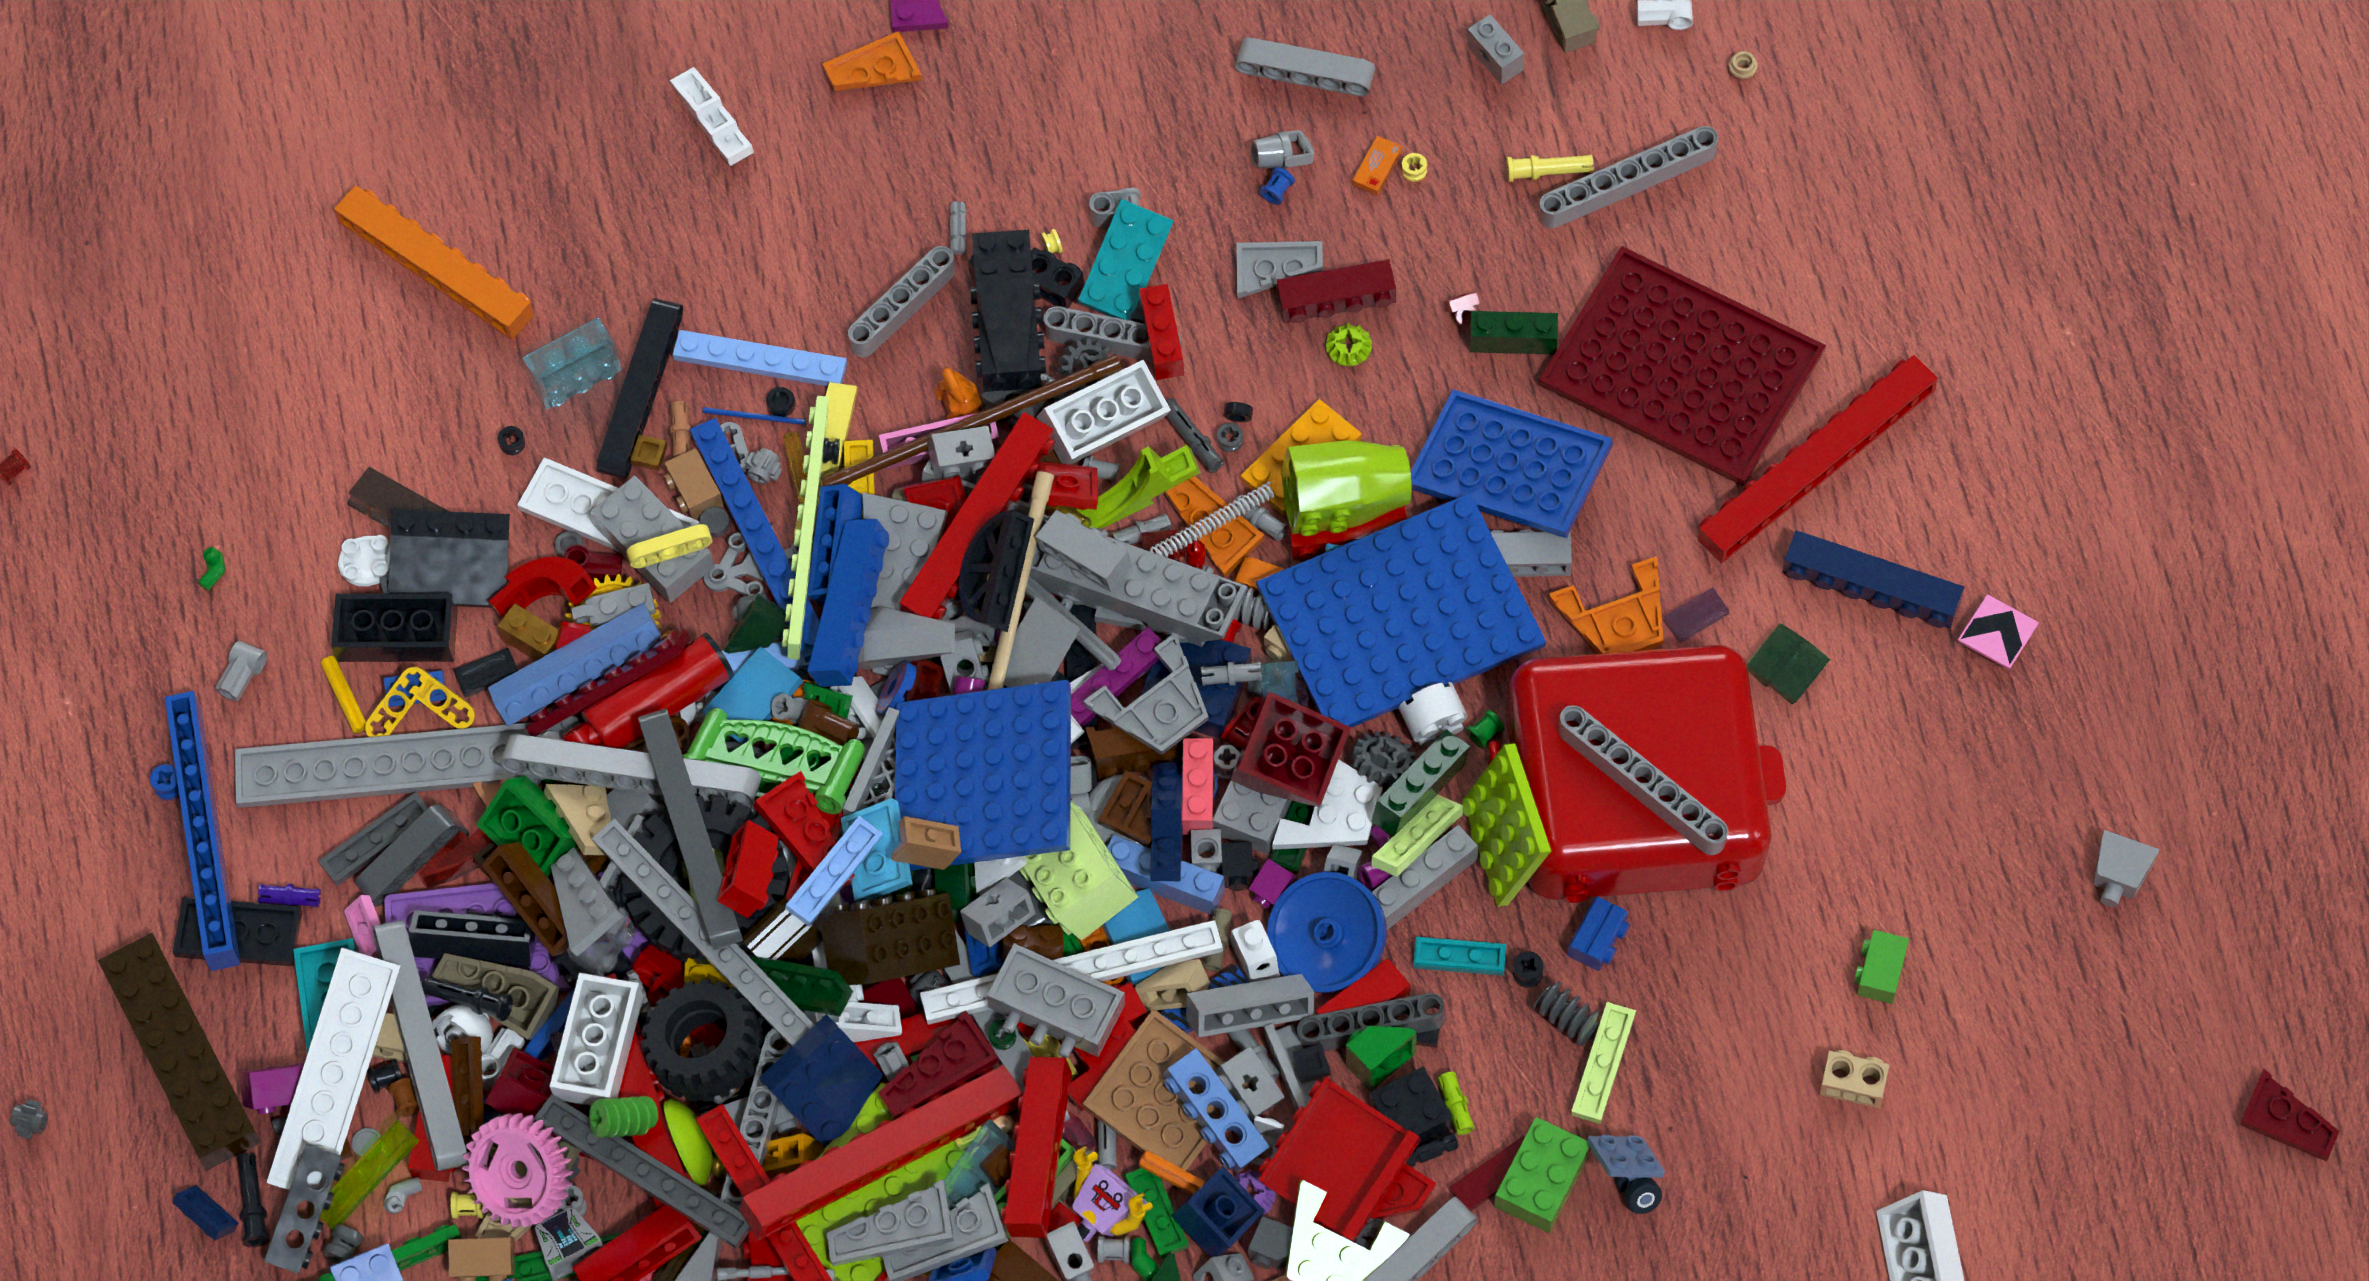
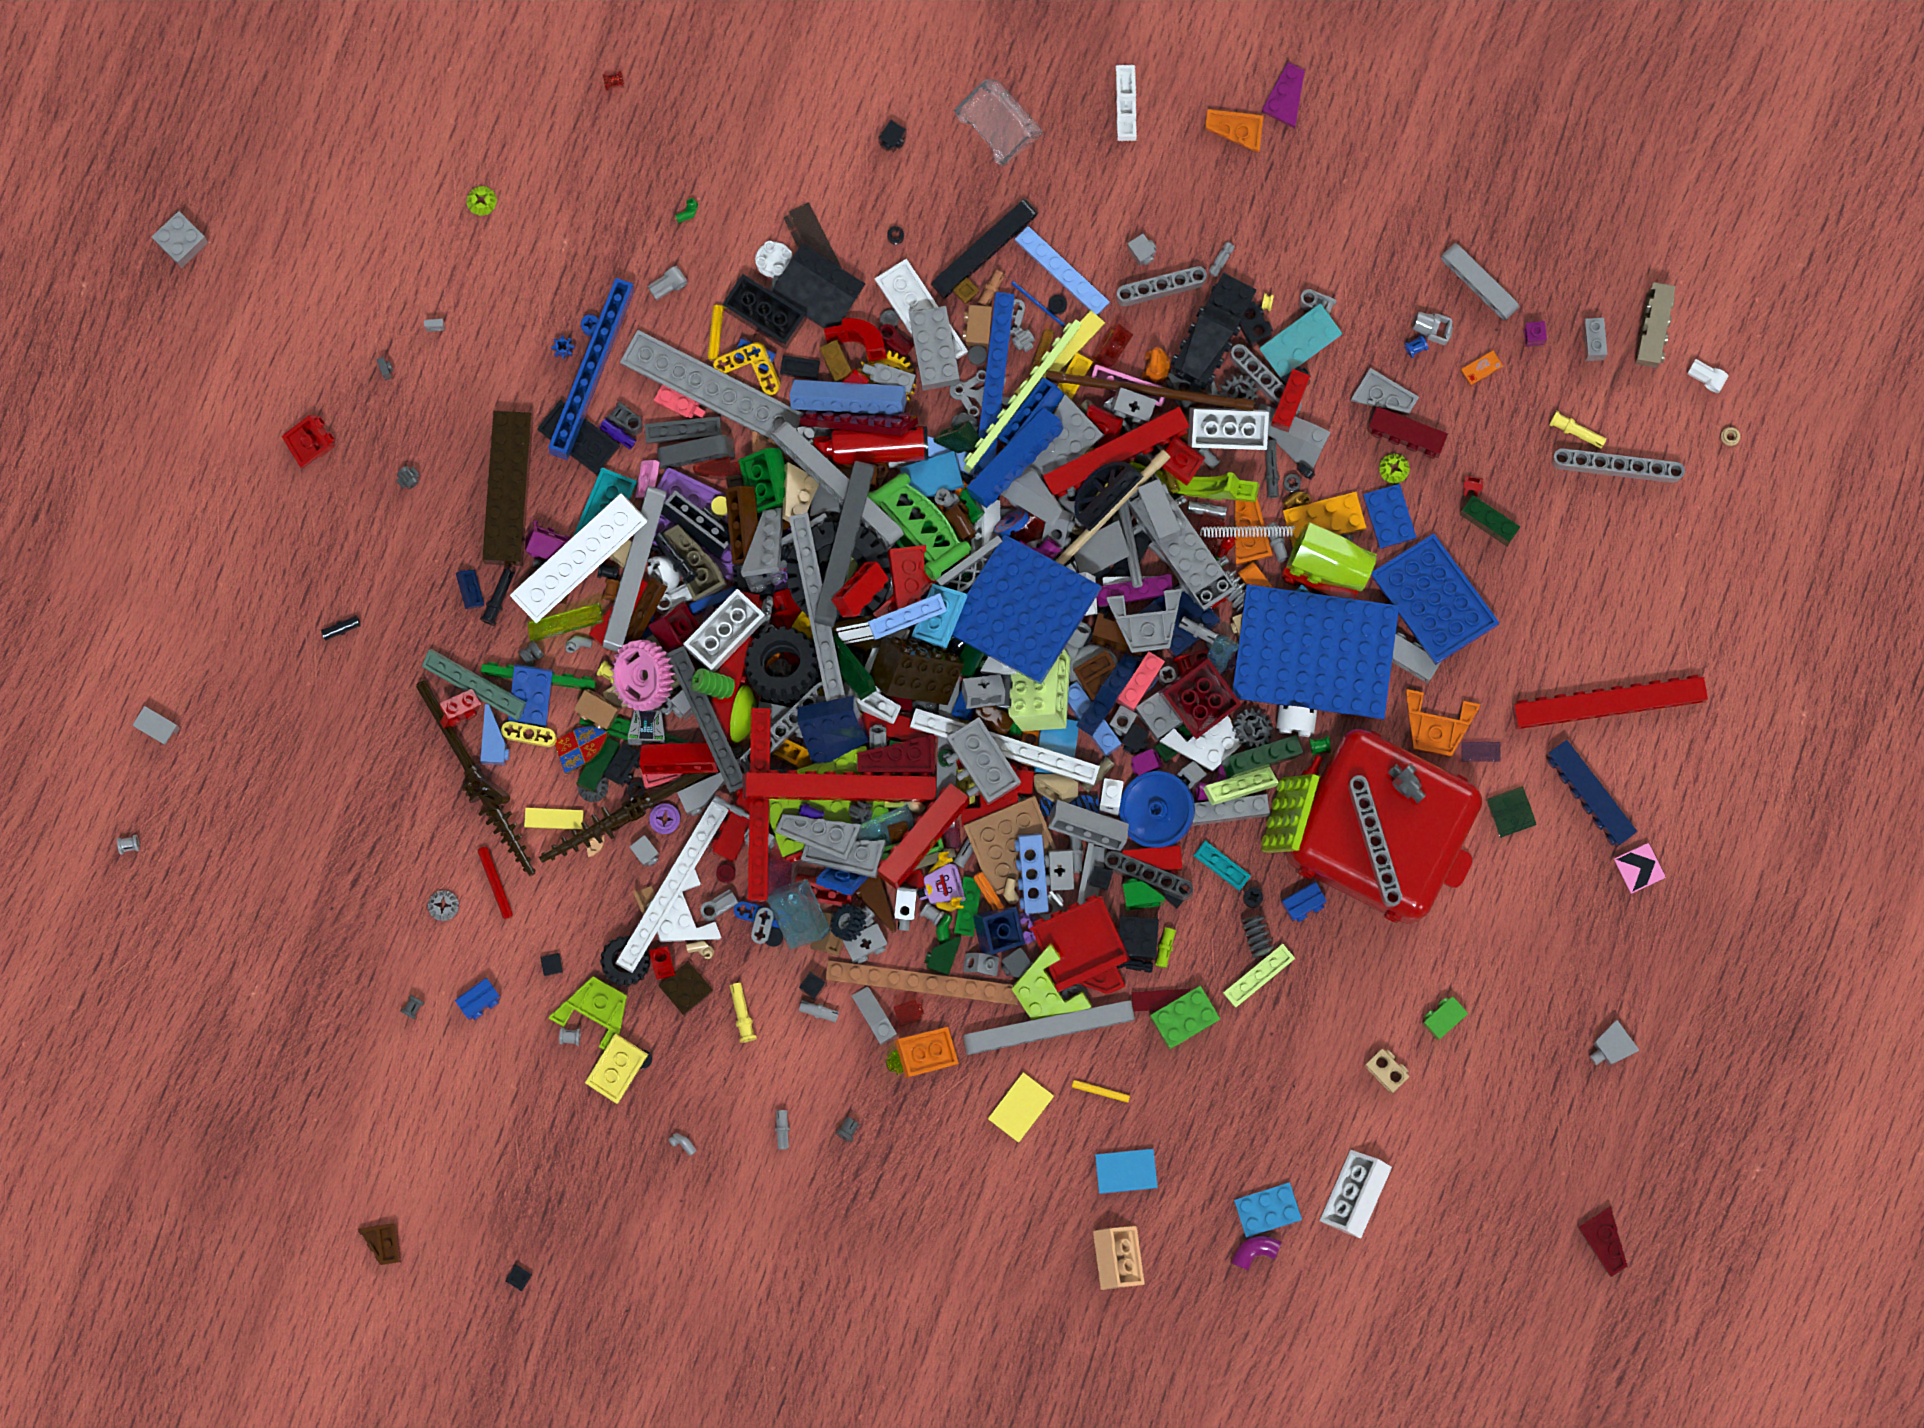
camera: 30 degrees right, 15 degrees up
(145, 831) = (562, 342): none -> blue gear
(279, 1252) = (540, 600): black brick -> none
(285, 867) = (623, 417): none -> dark grey piece
(349, 810) = (678, 403): none -> coral hinge
(364, 1140) = (577, 601): light grey piece -> none
(431, 324) = (892, 137): none -> black brick
(434, 262) = (916, 98): orange brick -> none
(489, 899) = (719, 506): none -> light yellow tile
(558, 228) = (998, 120): none -> clear windscreen
(572, 363) = (954, 212): clear light blue brick -> none
(598, 1183) = (681, 706): none -> light grey brick
(669, 546) = (937, 363): light yellow beam -> none
(831, 451) = (1065, 355): black bush -> none
(848, 273) = (1142, 250): none -> light grey brick
(855, 1210) = (810, 812): none -> dark purple pin
(885, 403) = (1112, 345): none -> clear red brick
(927, 843) = (967, 632): medium nougat panel -> none
(931, 1169) = (860, 812): none -> dark grey gear
(1200, 1156) = (1009, 891): none -> tan arm
(1209, 378) = (1302, 442): none -> light grey wedge
(1248, 451) = (1296, 498): none -> pearl gold arm
(1382, 404) = (1389, 516): none -> blue plate
(1416, 175) = (1499, 387): light yellow bush -> none
(1417, 85) = (1535, 334): none -> magenta brick
(1632, 1167) = (1234, 1042): sand blue plate -> none
(1633, 682) = (1407, 782): none -> dark grey piece
(1682, 365) = (1572, 599): dark red plate -> none

